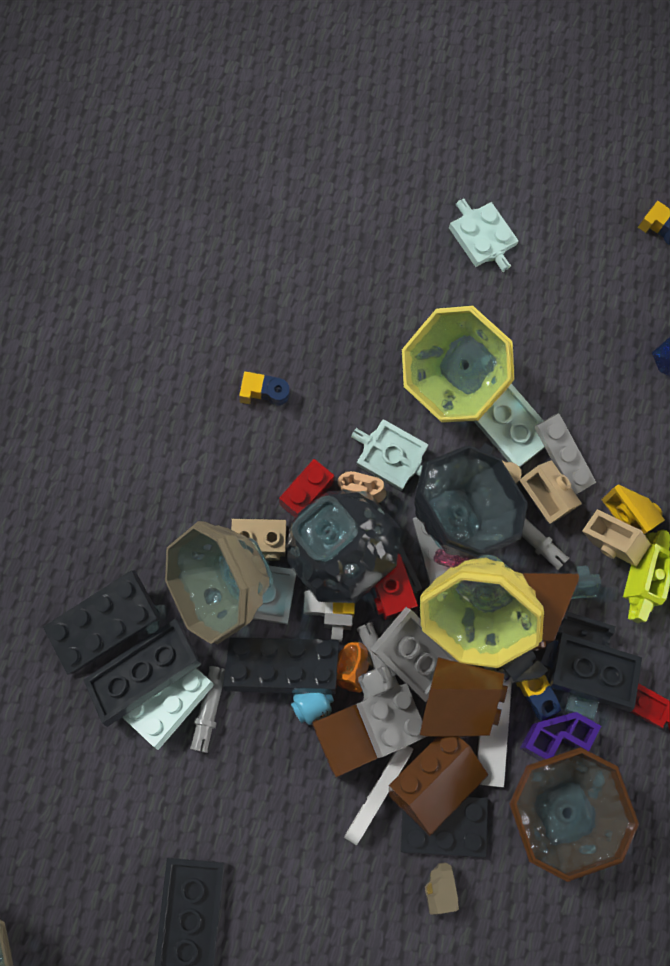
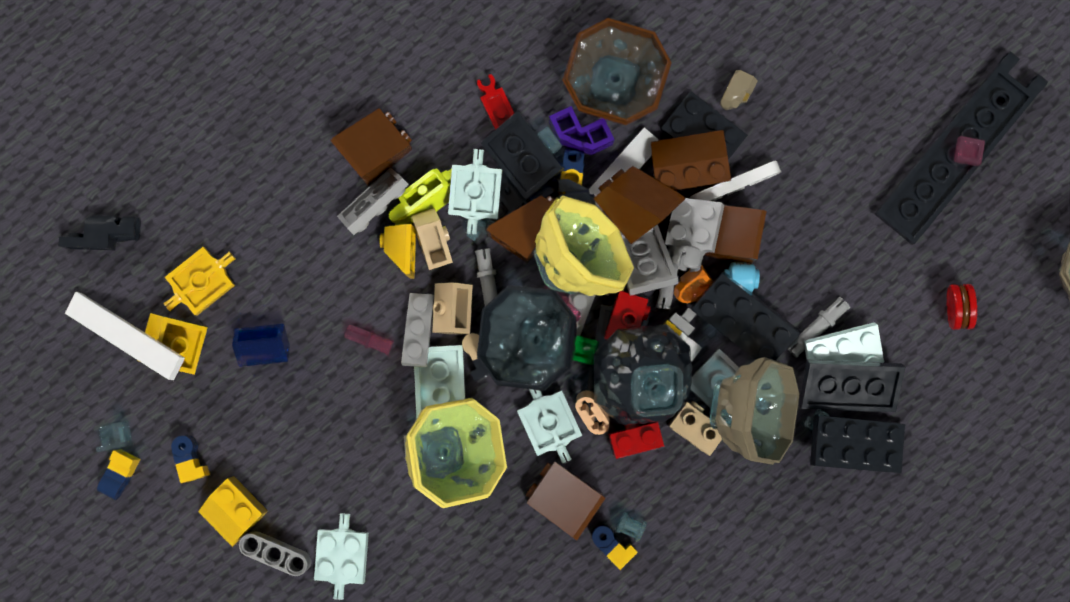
camera: 140 degrees left, 10 degrees up
(82, 824) = (961, 306): none -> red head
(258, 415) = (631, 527): none -> clear light blue bush
(333, 397) = (564, 499): none -> reddish brown slope
(411, 536) = (585, 350): none -> green tile
(546, 193) = (264, 556): none -> light grey beam
(598, 212) = (232, 510): none -> yellow slope
(598, 419) = (369, 339): none -> clear pink axle
(613, 605) = (475, 191): none -> light aqua plate

